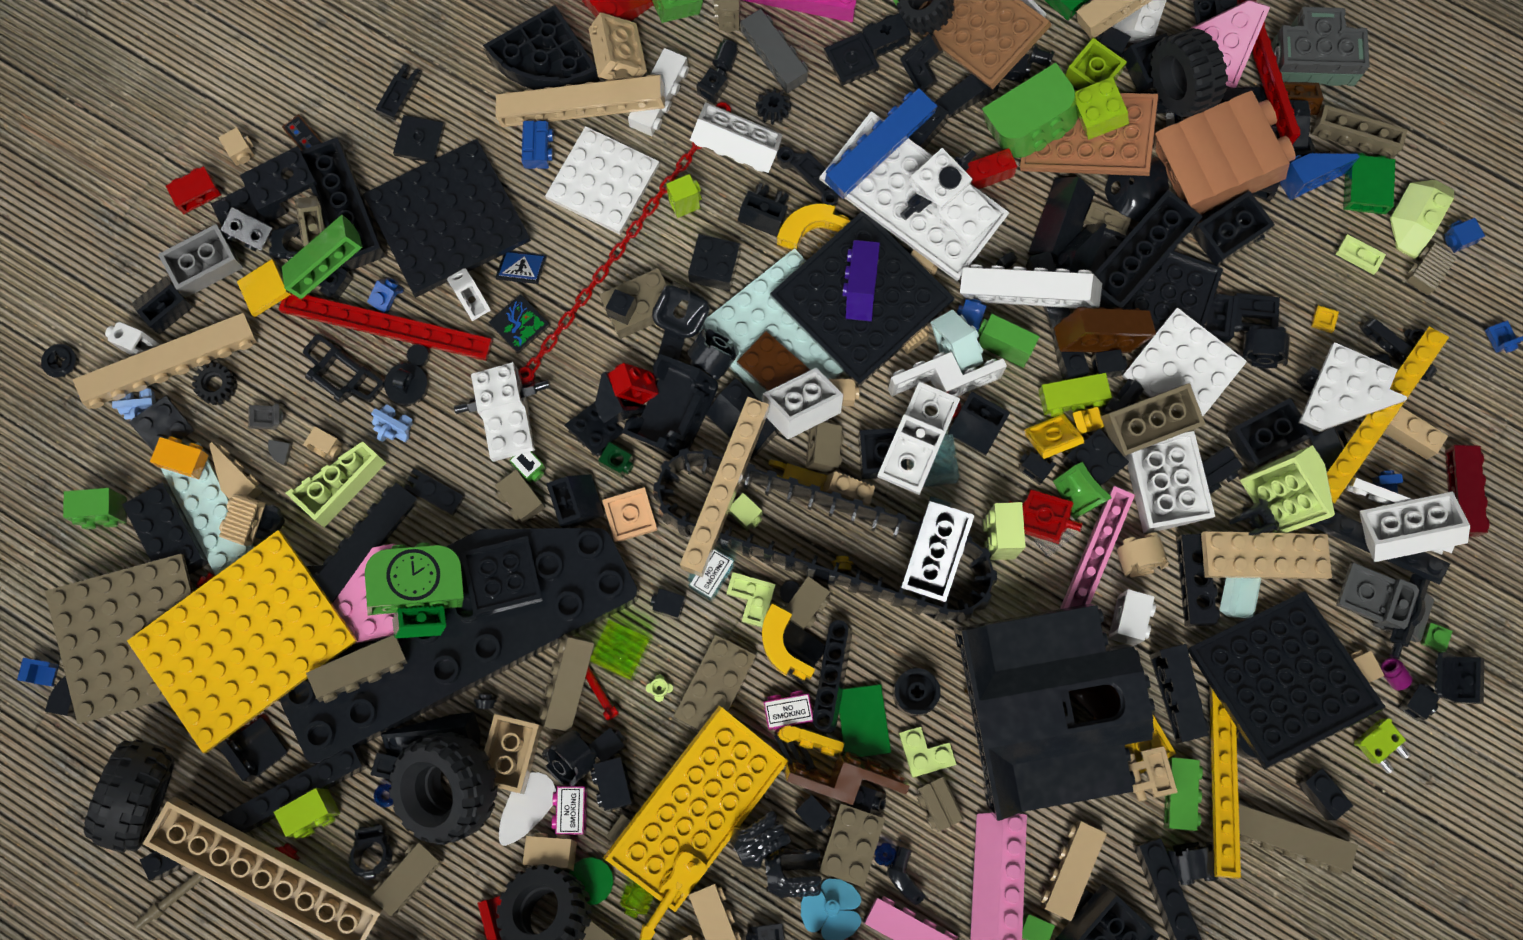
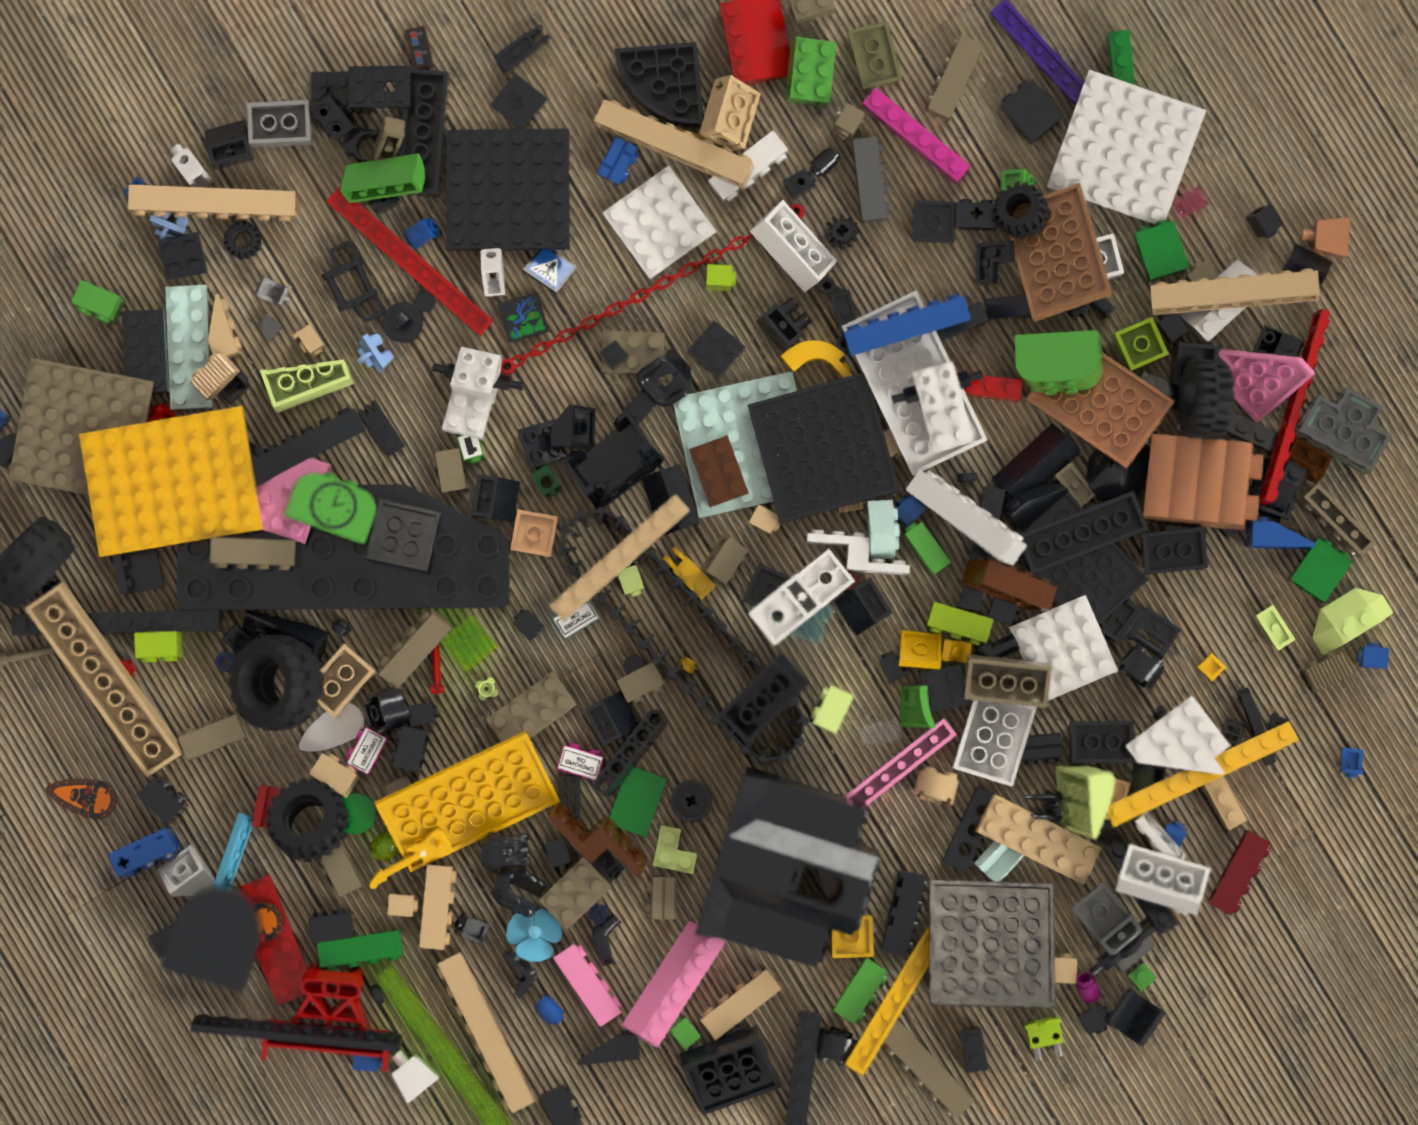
camera: 25 degrees right, 10 degrees up
(51, 357) = (114, 144): black gear -> none
(179, 457) = (186, 296): light orange brick -> none
(193, 190) = (302, 53): red brick -> none
(237, 146) = (358, 30): tan brick -> none
(263, 288) = (321, 174): yellow tile -> none
(366, 838) = (194, 688): black piece -> none
(419, 622) = (319, 542): green brick -> none
(633, 383) = (592, 424): red brick -> none
(712, 353) = (671, 432): black brick -> none
(758, 597) = (605, 654): yellowish green plate -> none
(772, 639) = (594, 703): yellow arch -> none
(802, 403) = (722, 517): white brick -> none
(809, 740) = (585, 793): yellow hinge -> none
(848, 487) = (724, 606): tan brick -> none
(862, 280) = (828, 435): dark purple wedge -> none
(949, 178) = (943, 392): black piece -> none
(1047, 516) = (875, 712): red plate -> none
(1101, 108) = (1117, 388): lime brick -> none
(1132, 617) = (898, 832): white brick -> none
(1158, 773) = (848, 963): tan plate -> none

